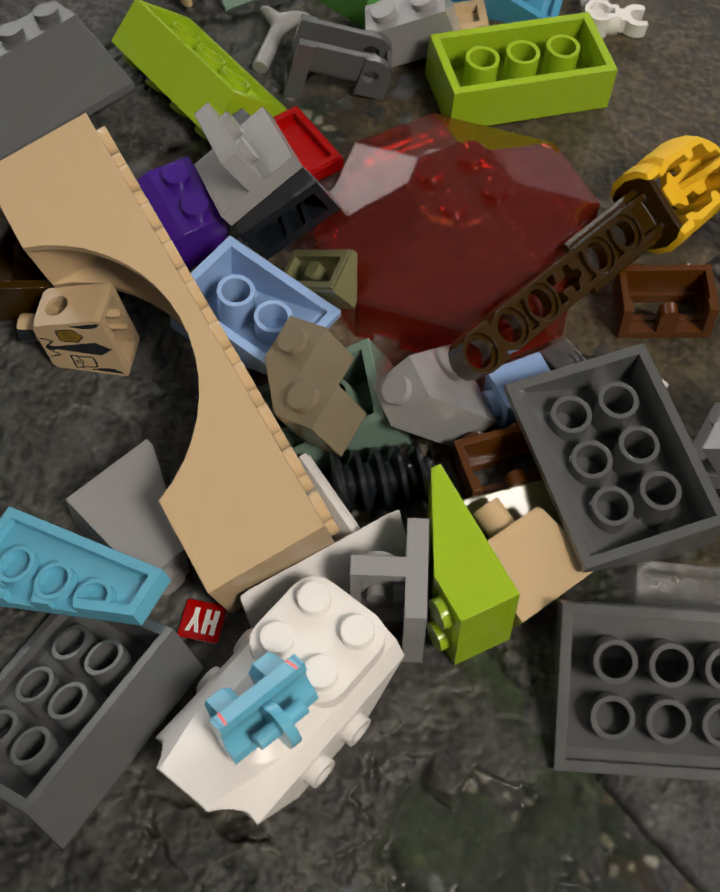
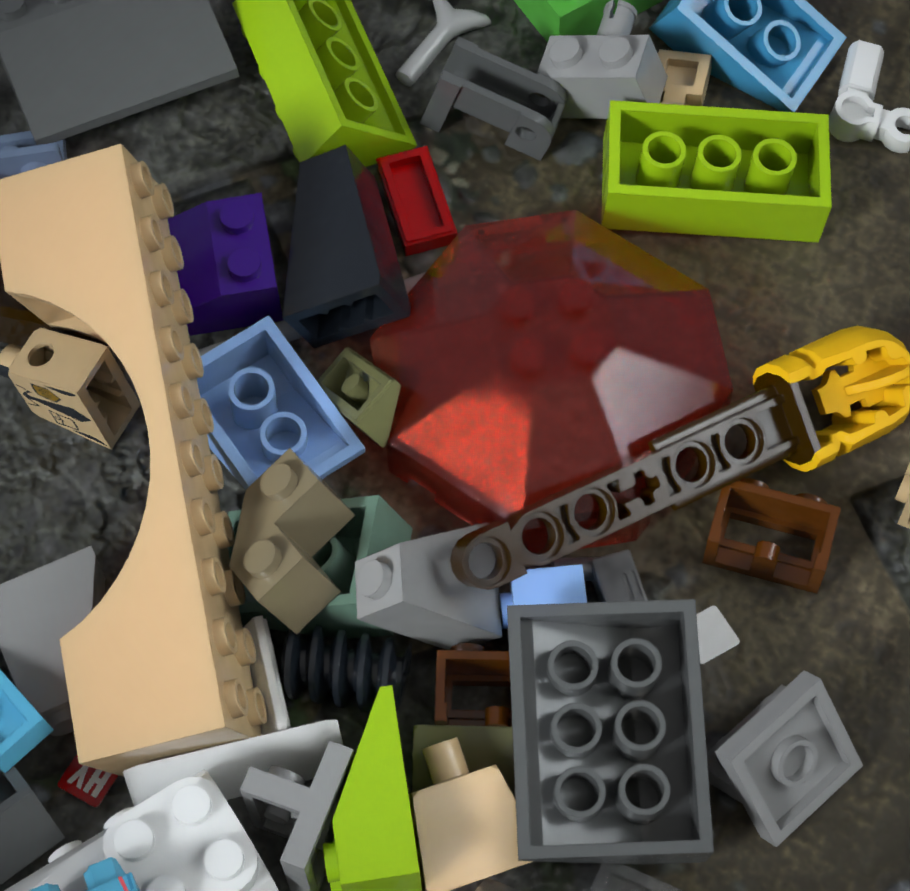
camera: 20 degrees right, 5 degrees up
(245, 160) = (314, 222): light grey bracket -> none

